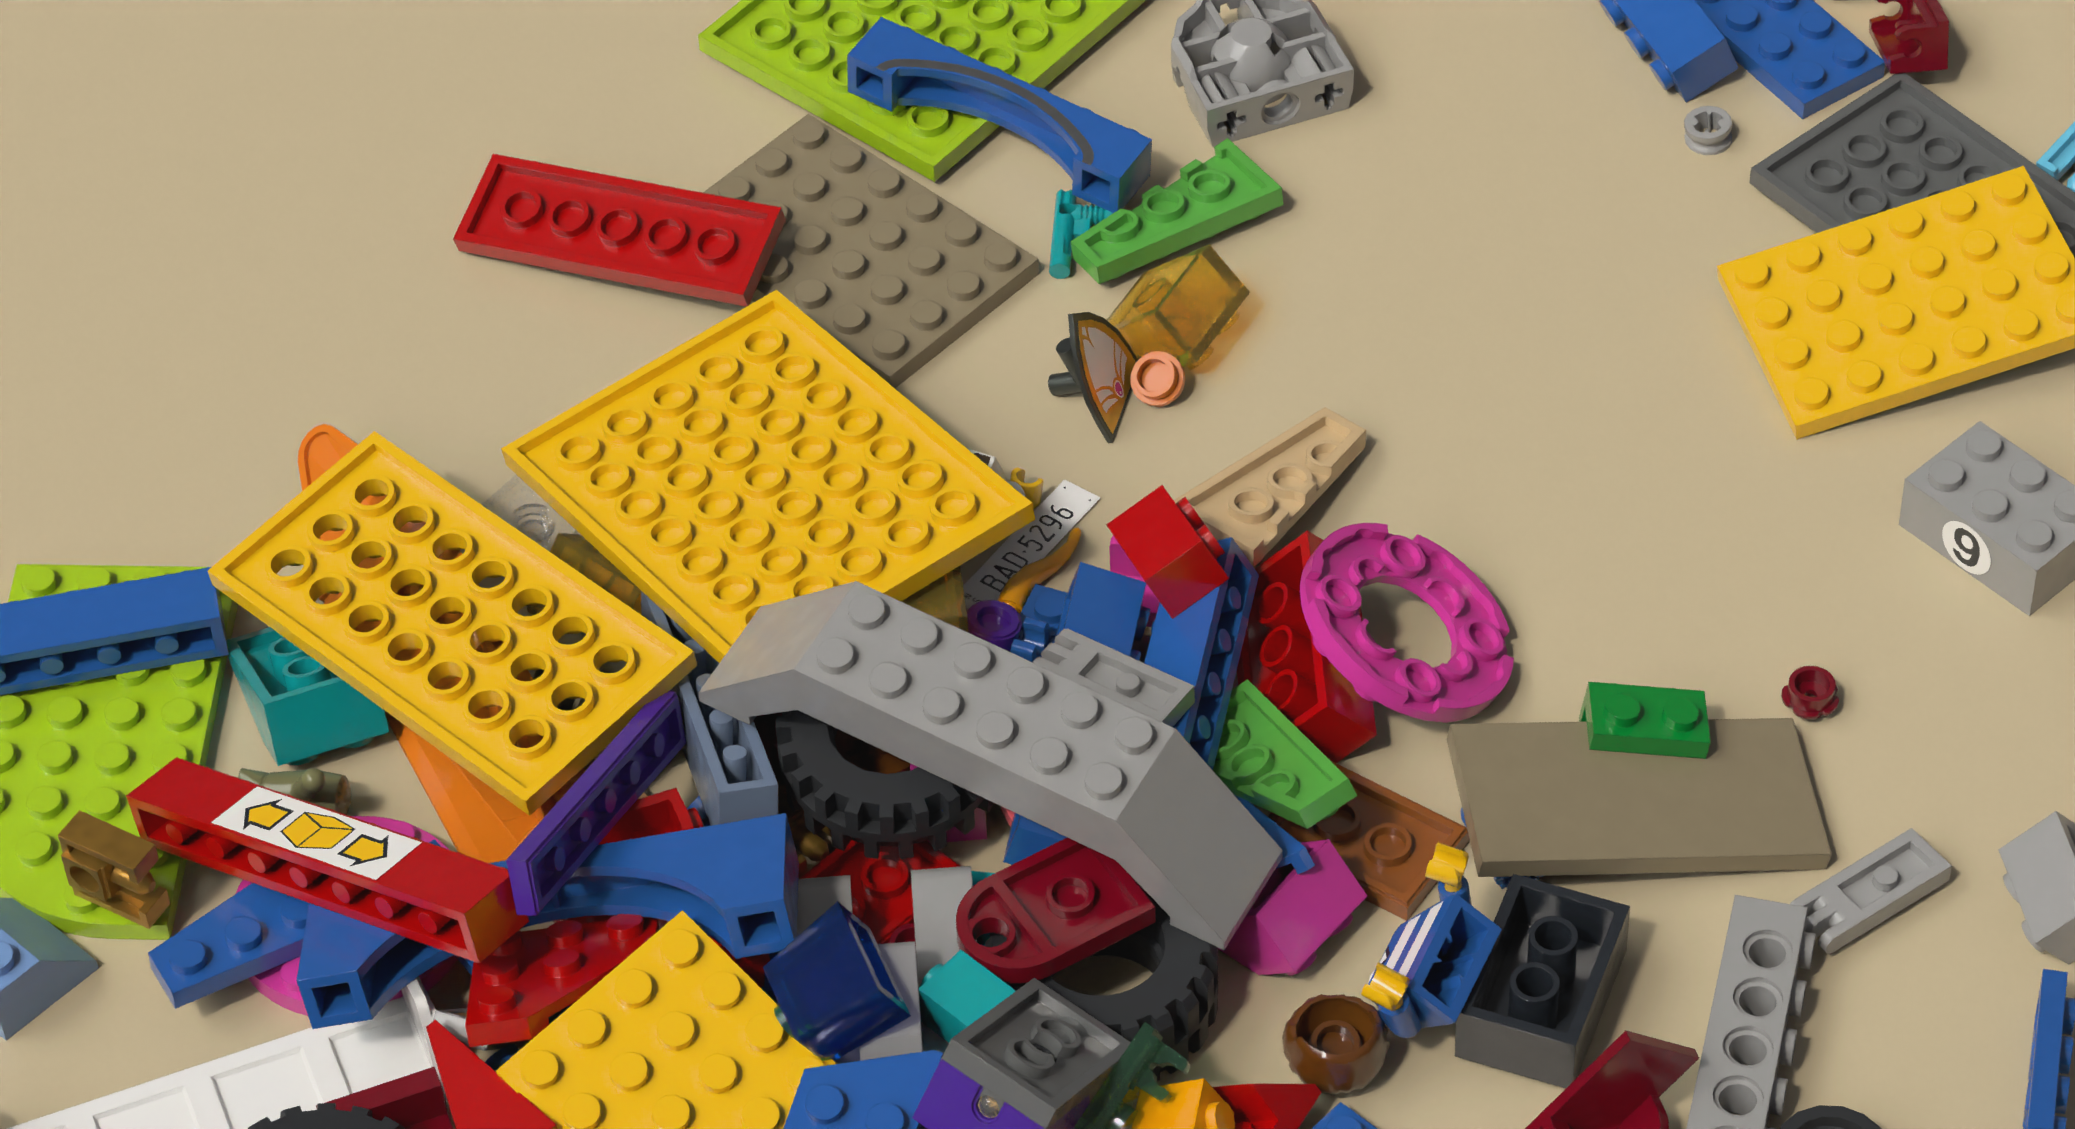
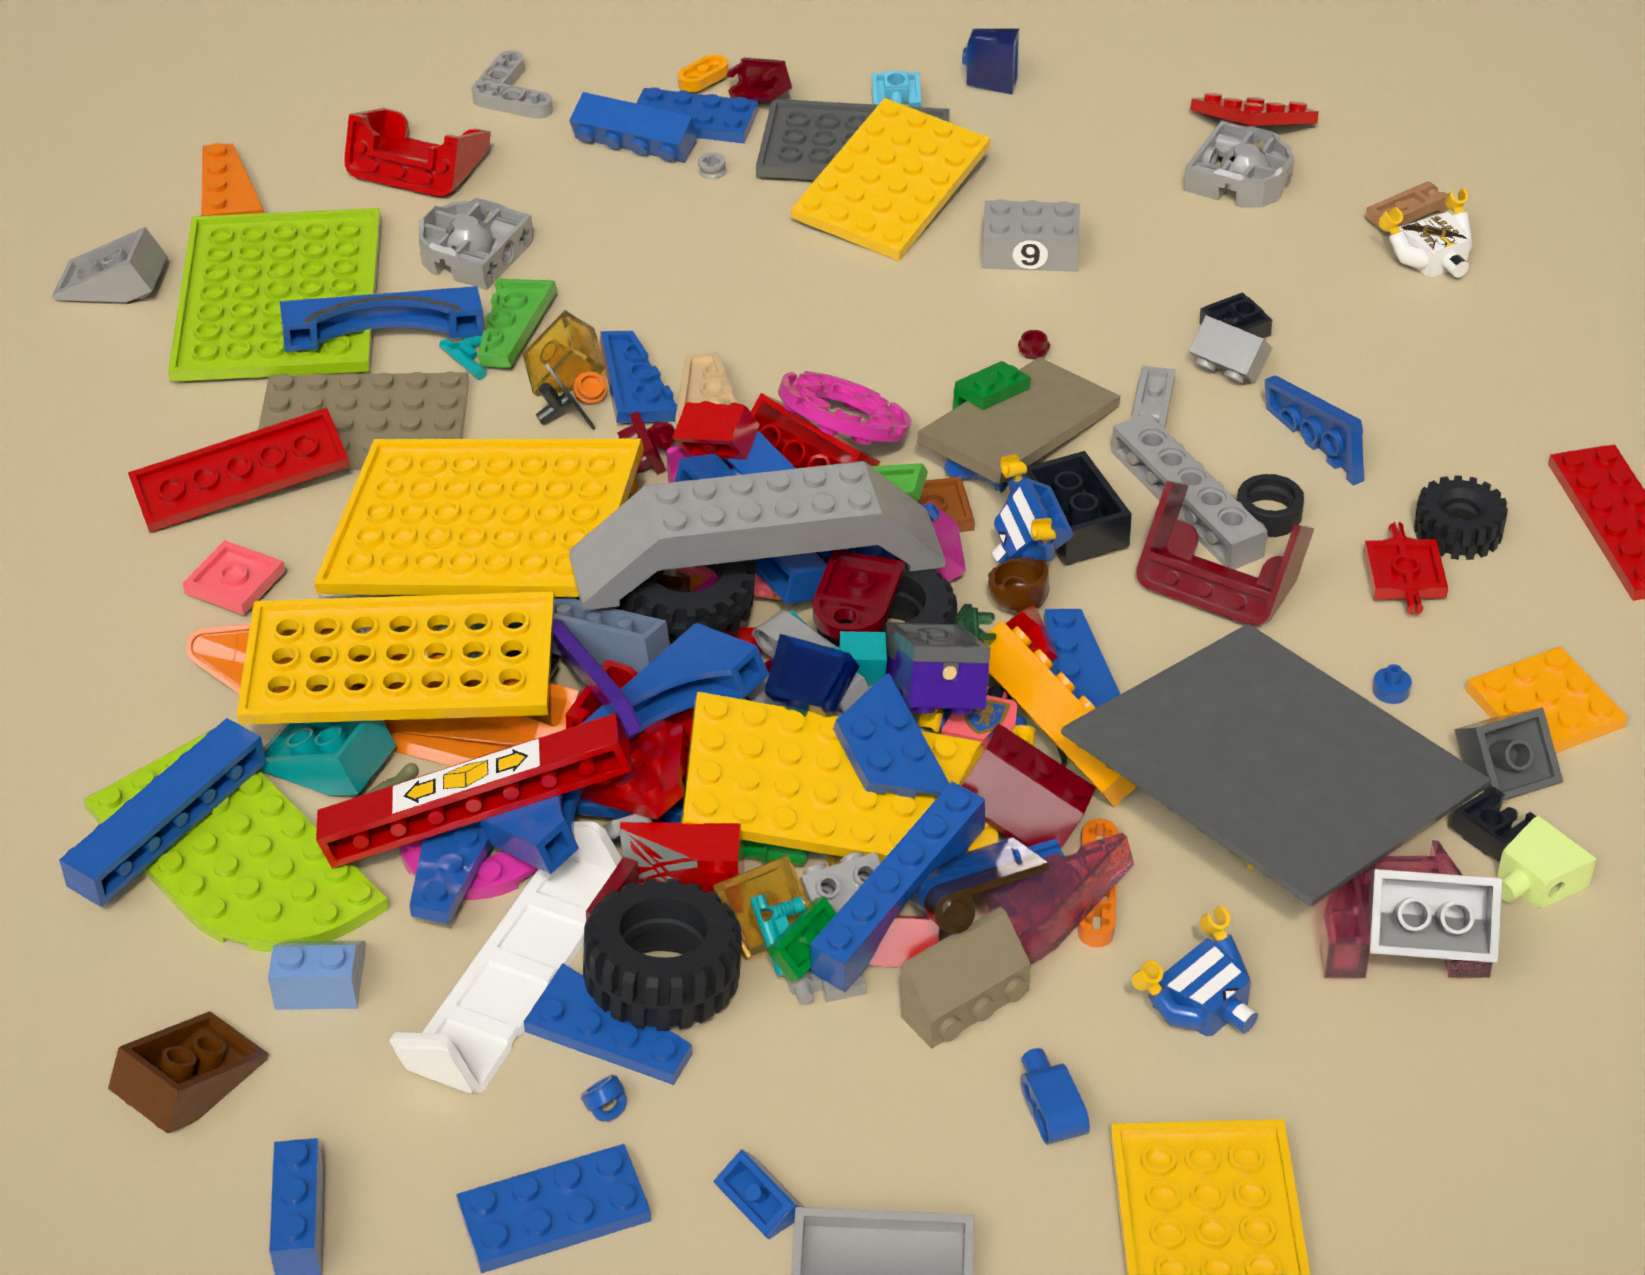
camera: 45 degrees left, 5 degrees down
(112, 869) = (347, 877): pearl gold brick -> none
(469, 376) = (233, 577): none -> coral plate
(1119, 491) = (656, 437): none -> dark red hips
(1226, 399) = (633, 380): none -> blue wing

